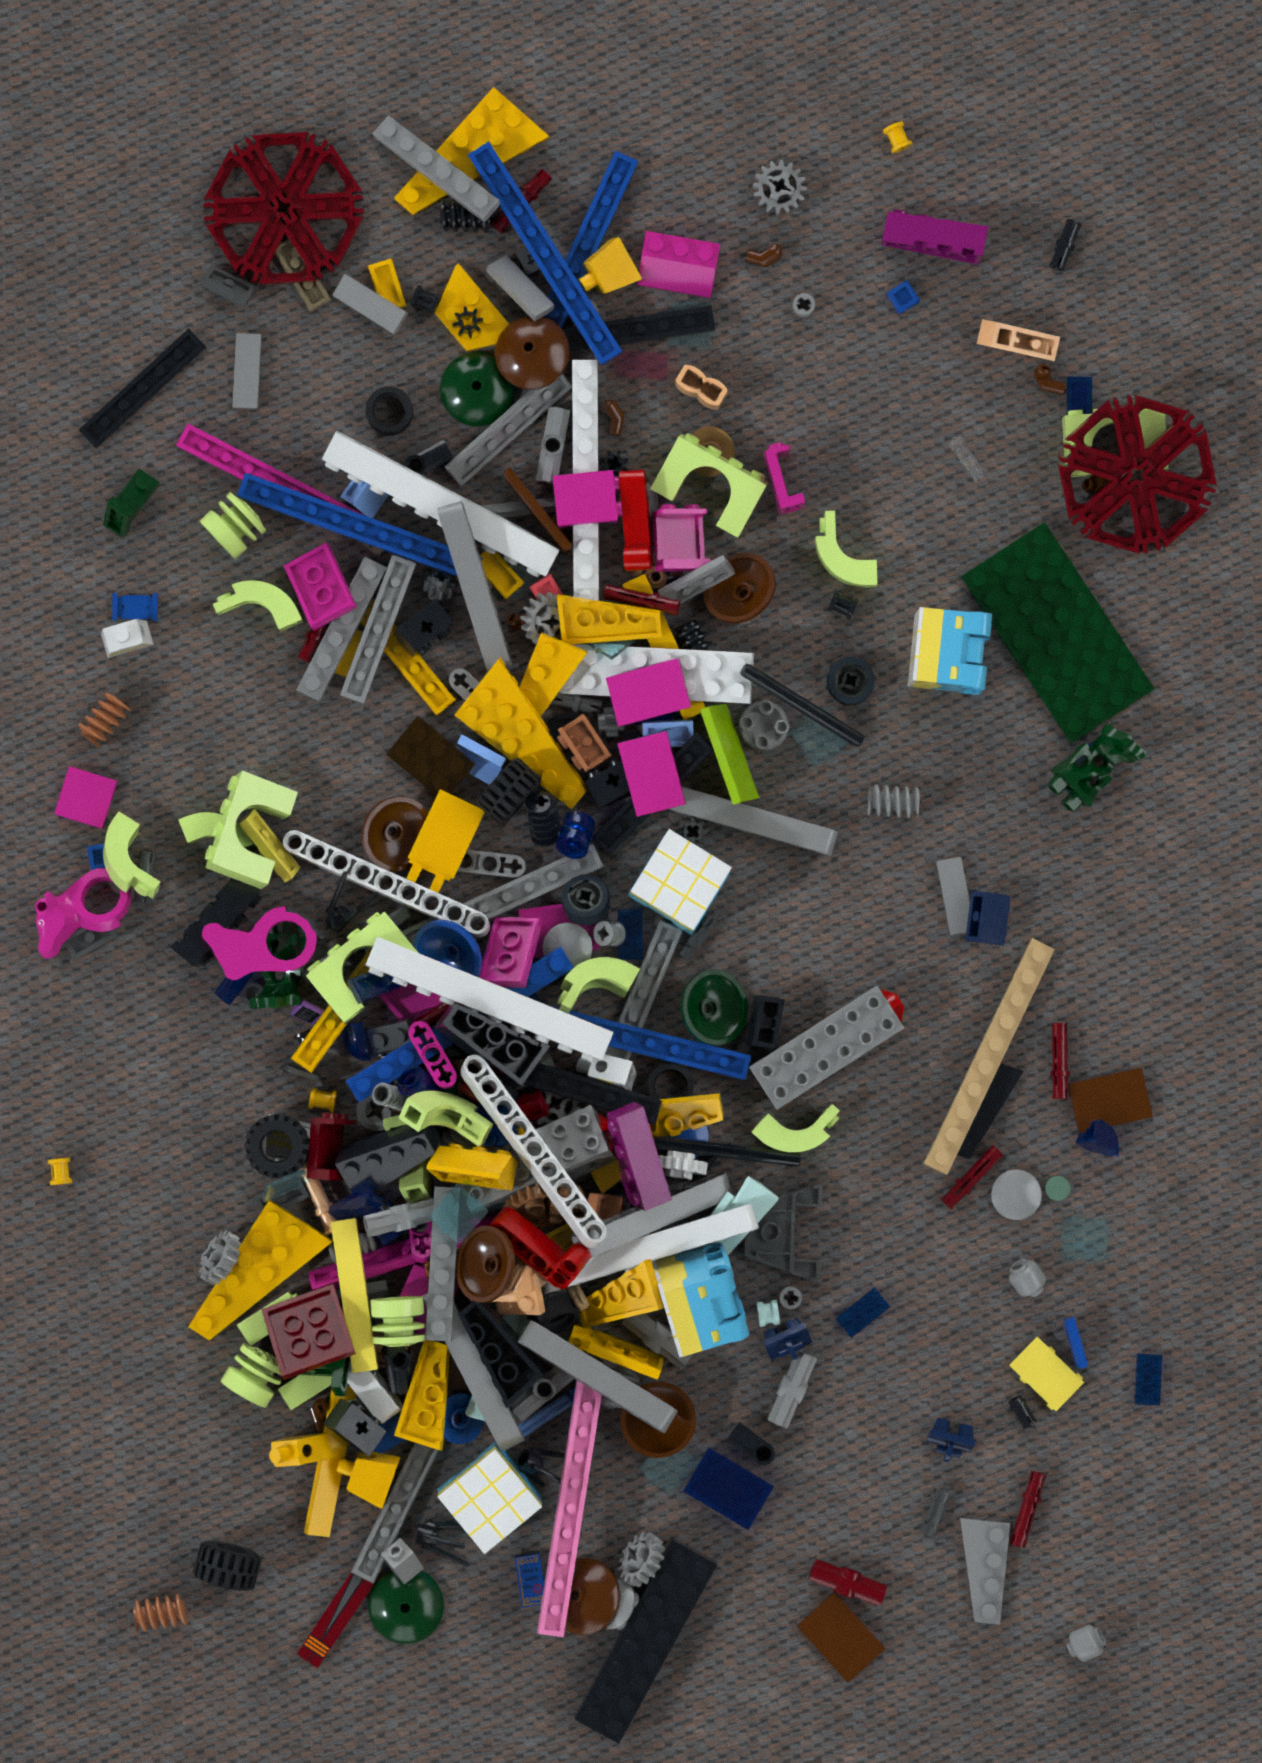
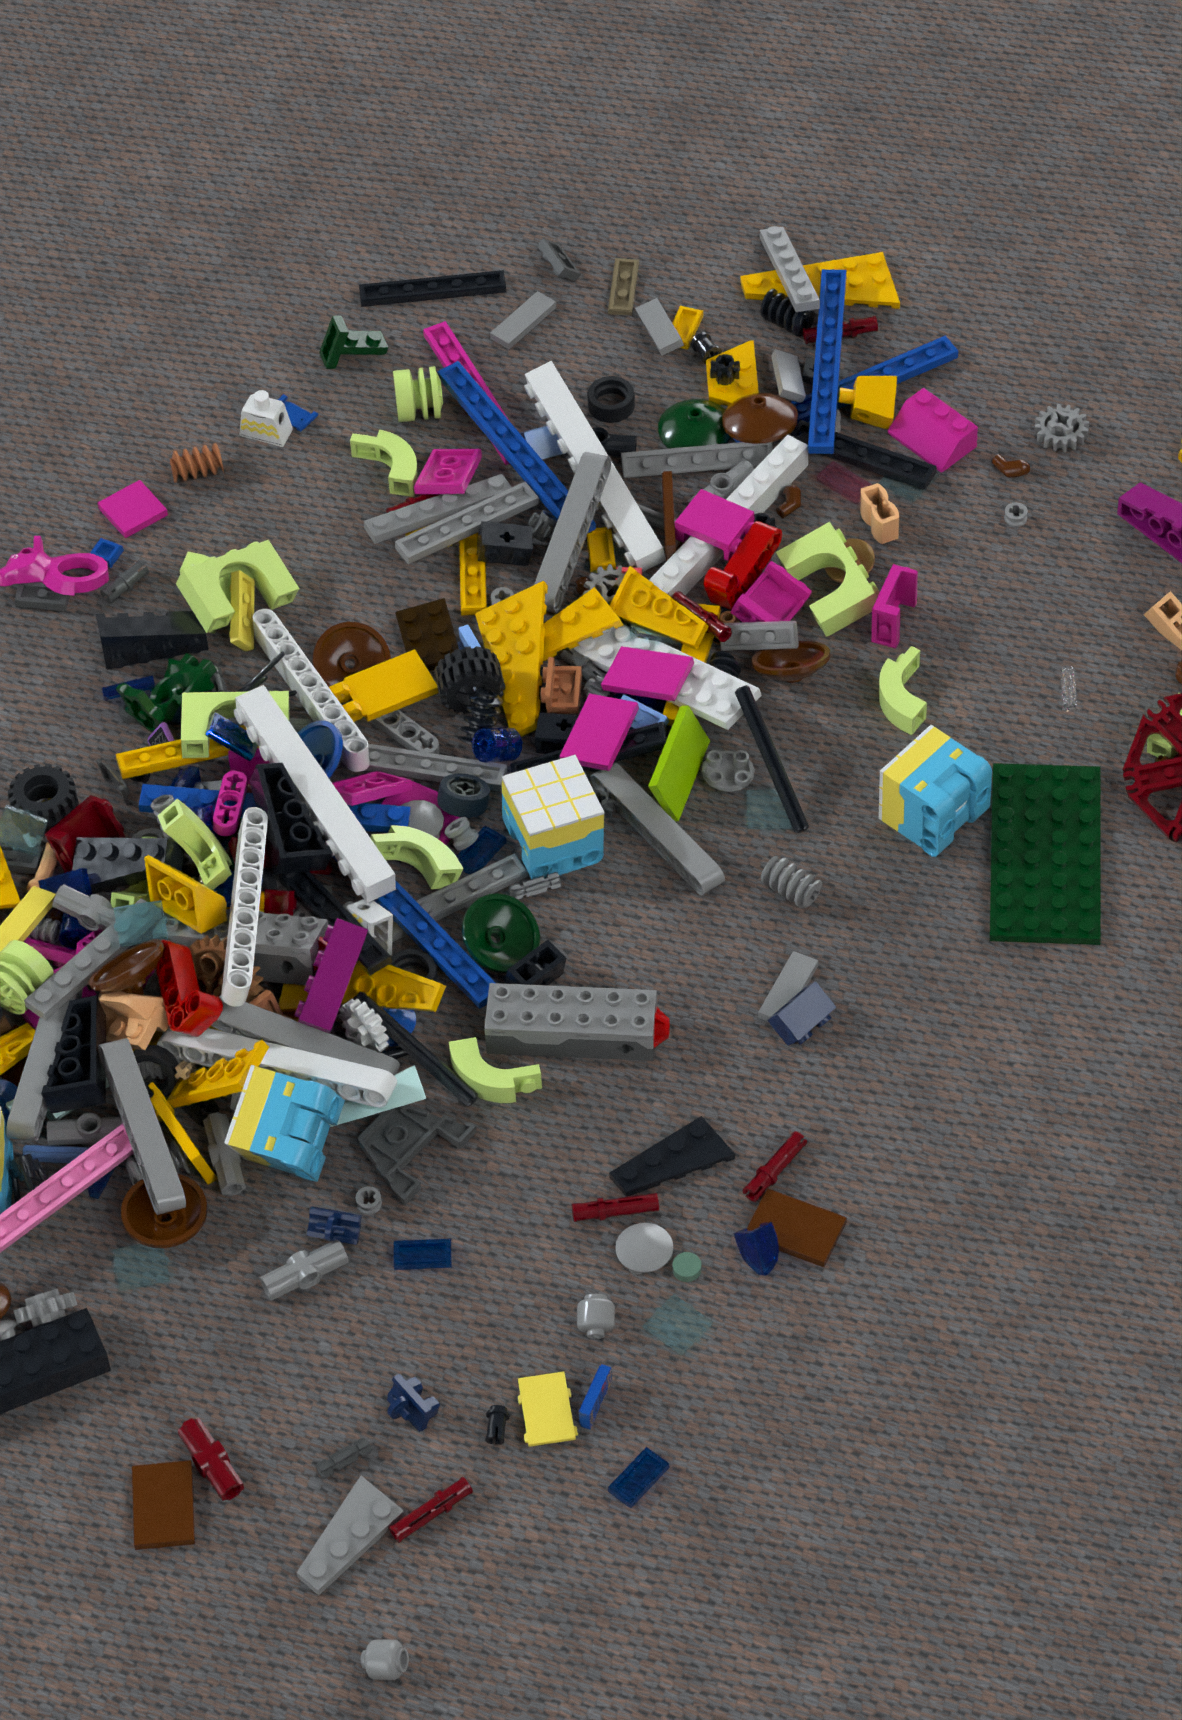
camera: 45 degrees right, 35 degrees down
(117, 861) = (120, 543): yellowish green arch -> none
(248, 951) = (148, 649): dark pink animal -> none
(295, 187) = (663, 234): dark red plate -> none
(322, 1099) = (121, 813): yellow bush -> none
(728, 1488) = (175, 1313): clear blue plate -> none
(749, 1442) = (228, 1291): black piece -> none
(768, 1313) = (337, 1196): light aqua wheel -> none
(837, 598) = (870, 725): black bush -> none
(853, 668) = (832, 792): wheel -> none
(903, 297) = (1106, 555): blue tile -> none
(988, 1056) = (710, 1117): tan plate -> none
(1078, 769) = (1024, 952): dark green hips -> none

